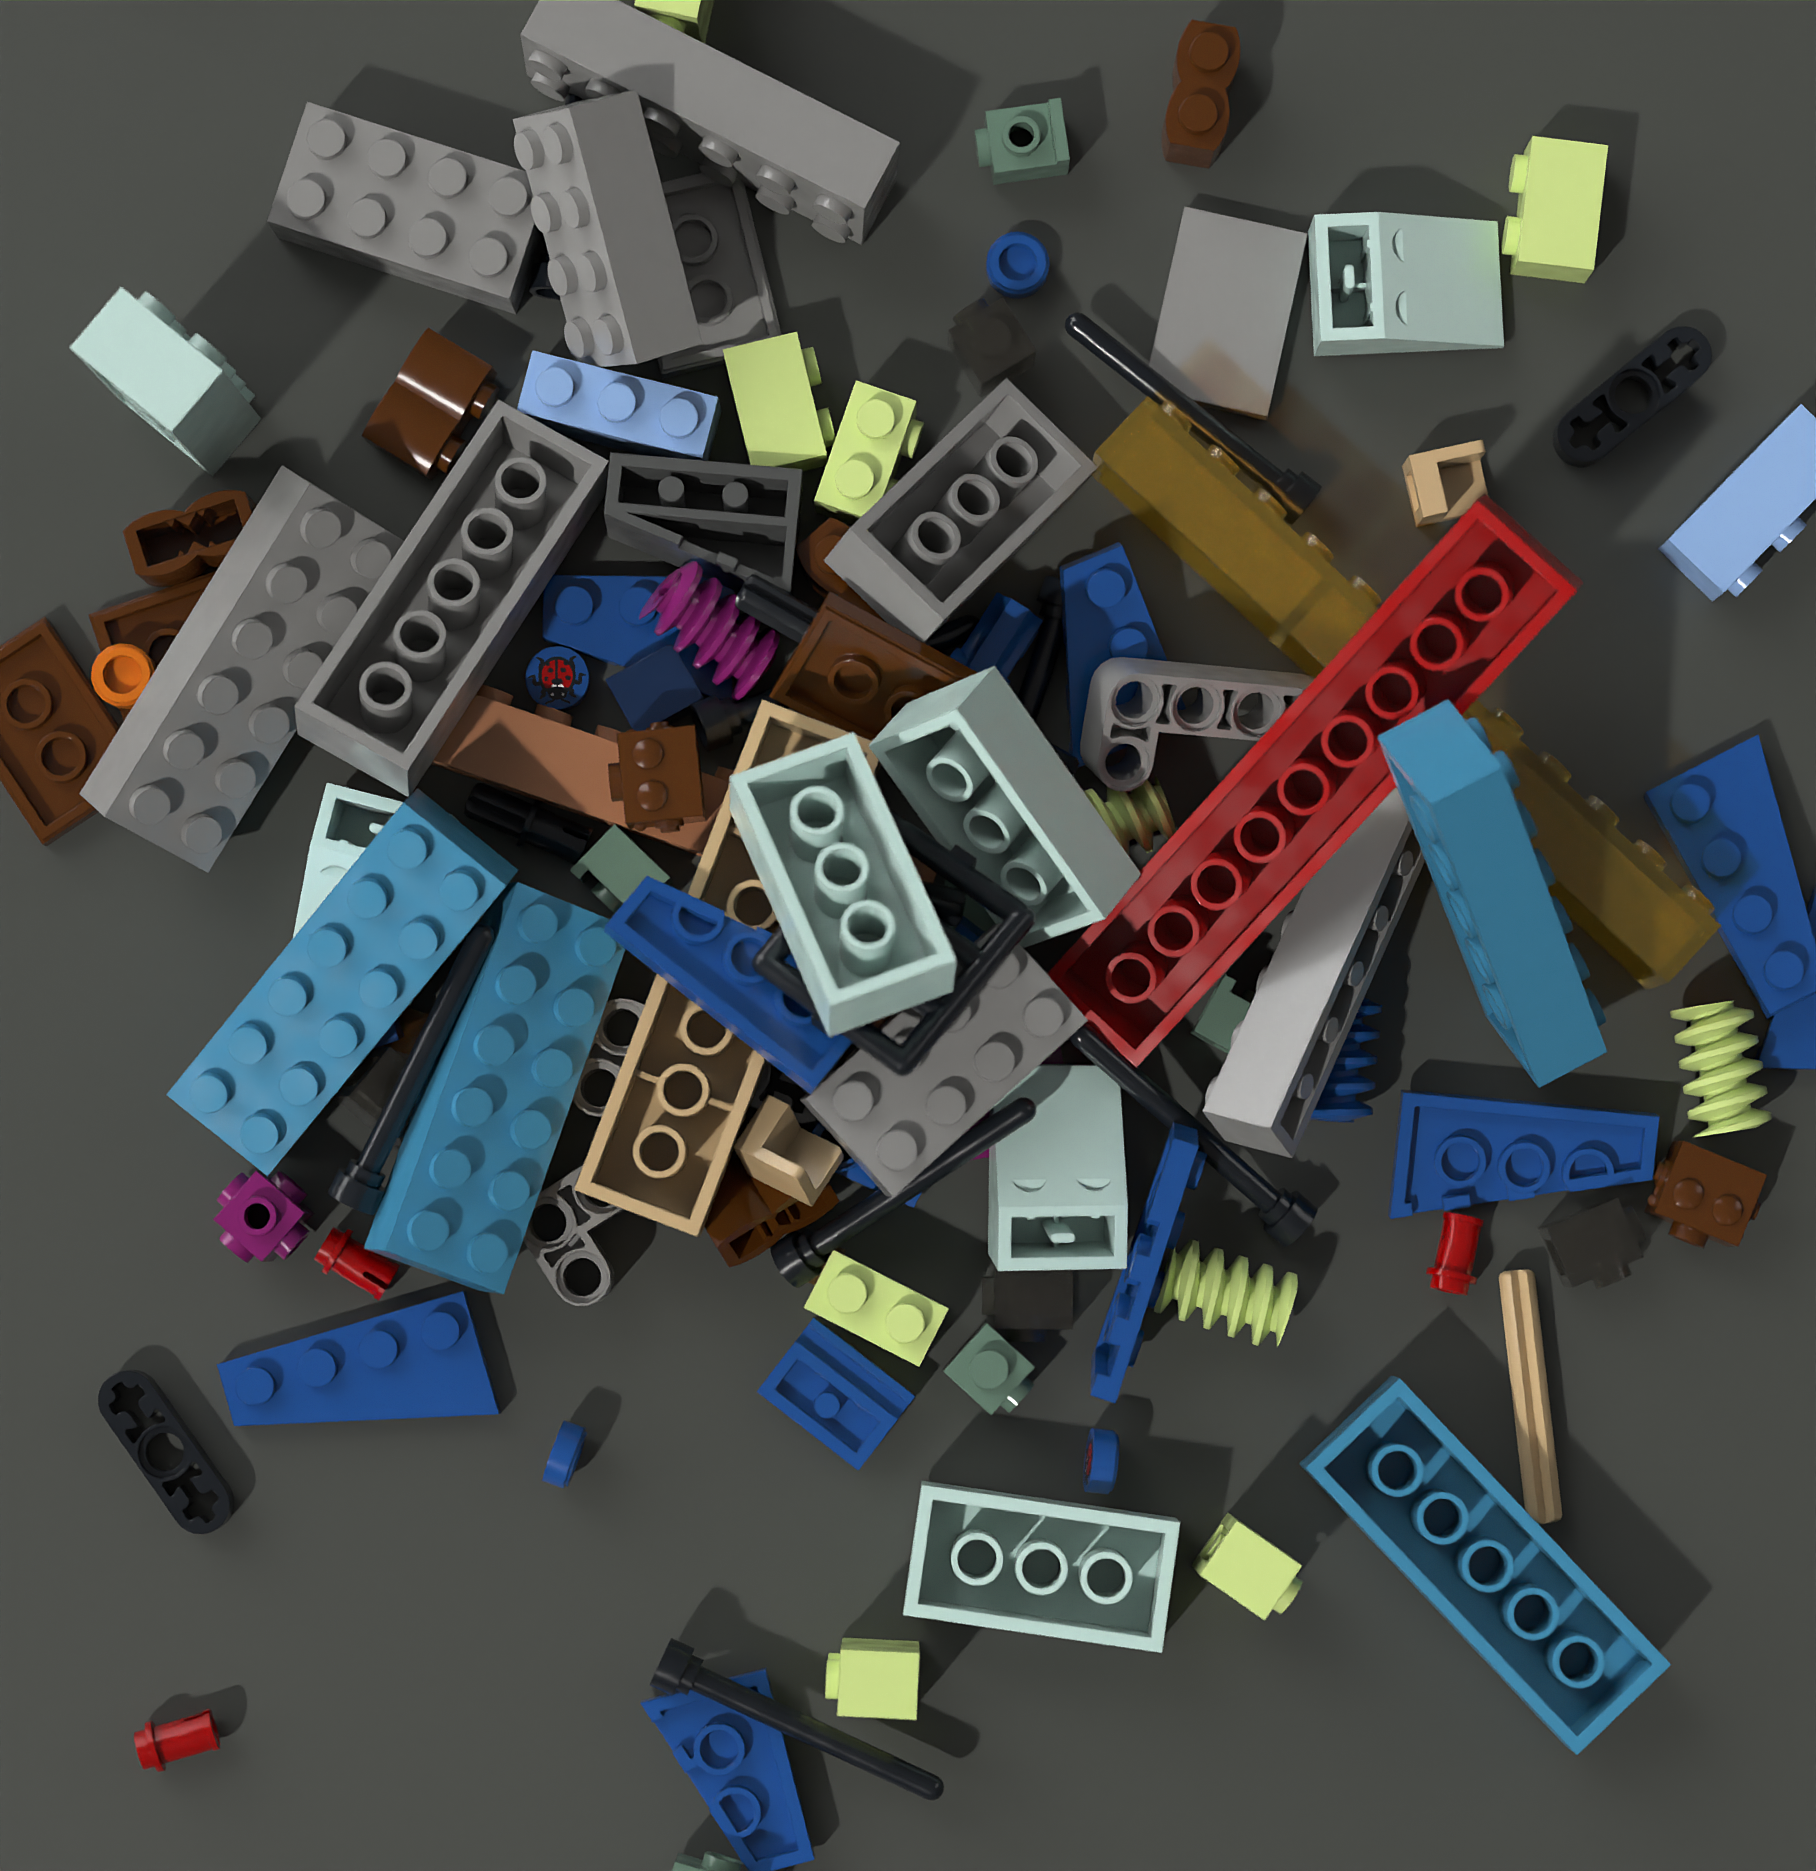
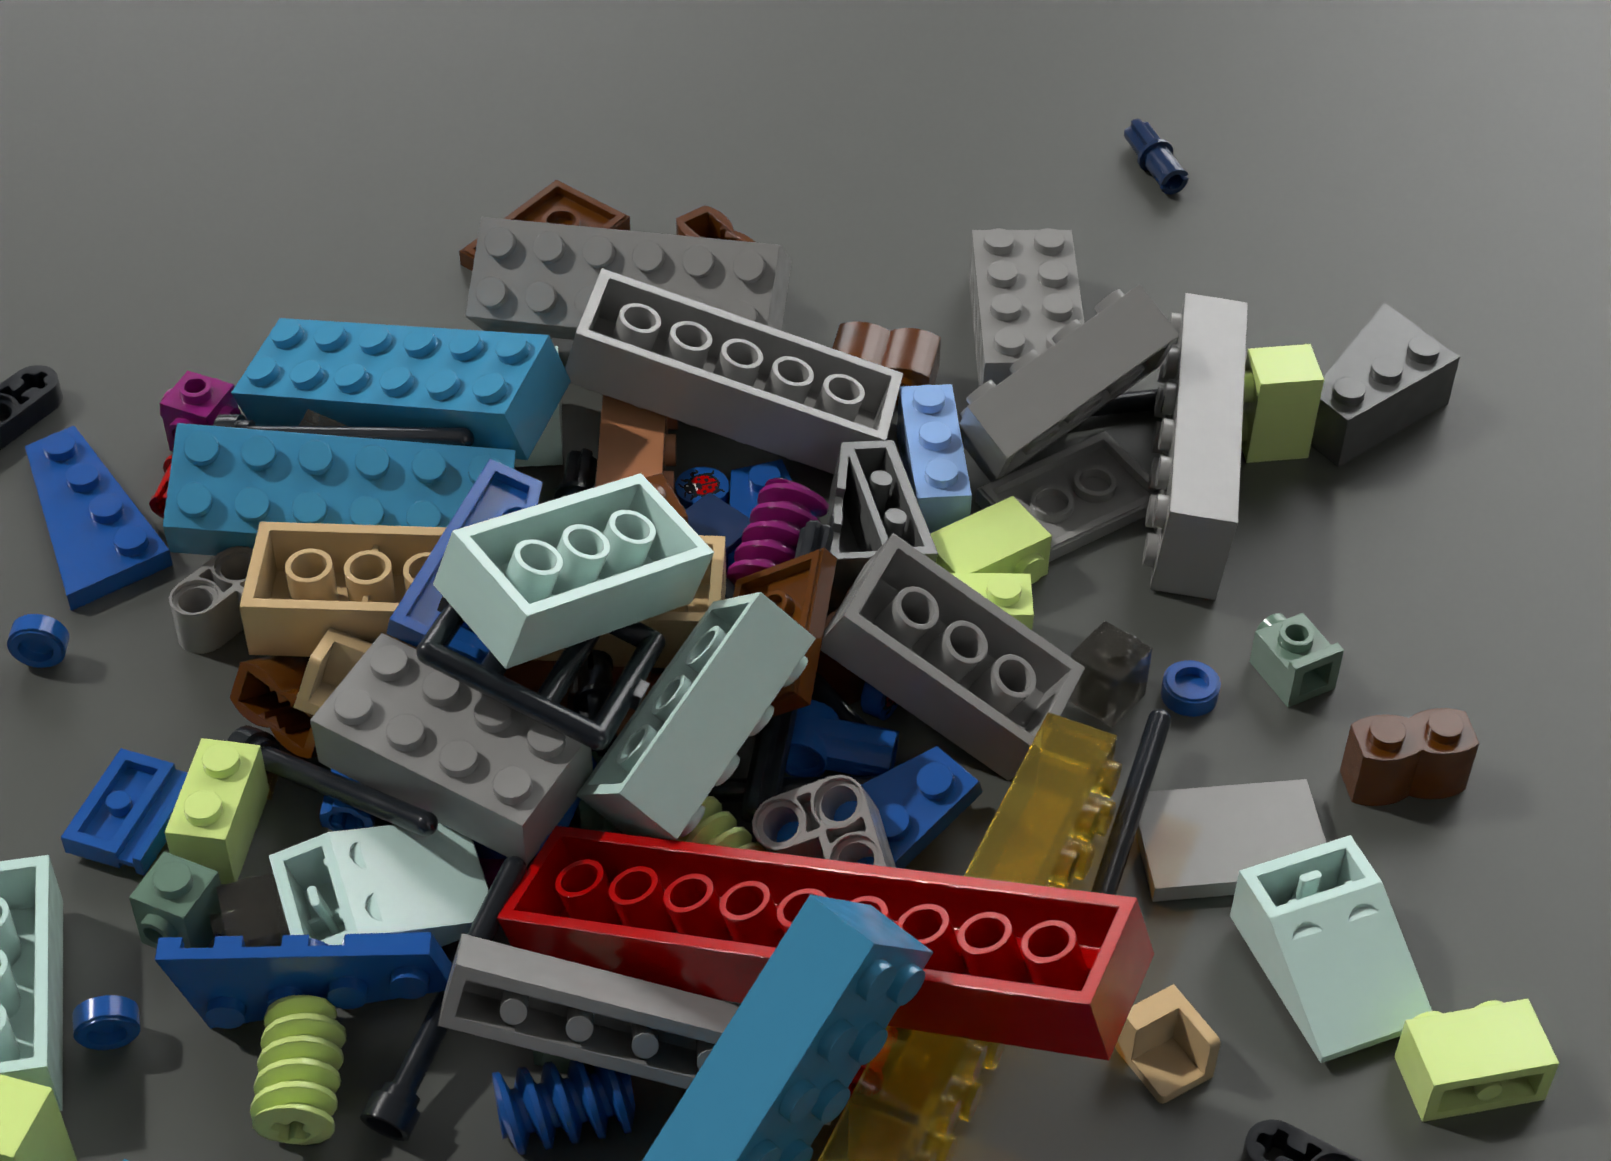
camera: 70 degrees right, 40 degrees down
(169, 378) = (823, 178): light aqua brick -> none

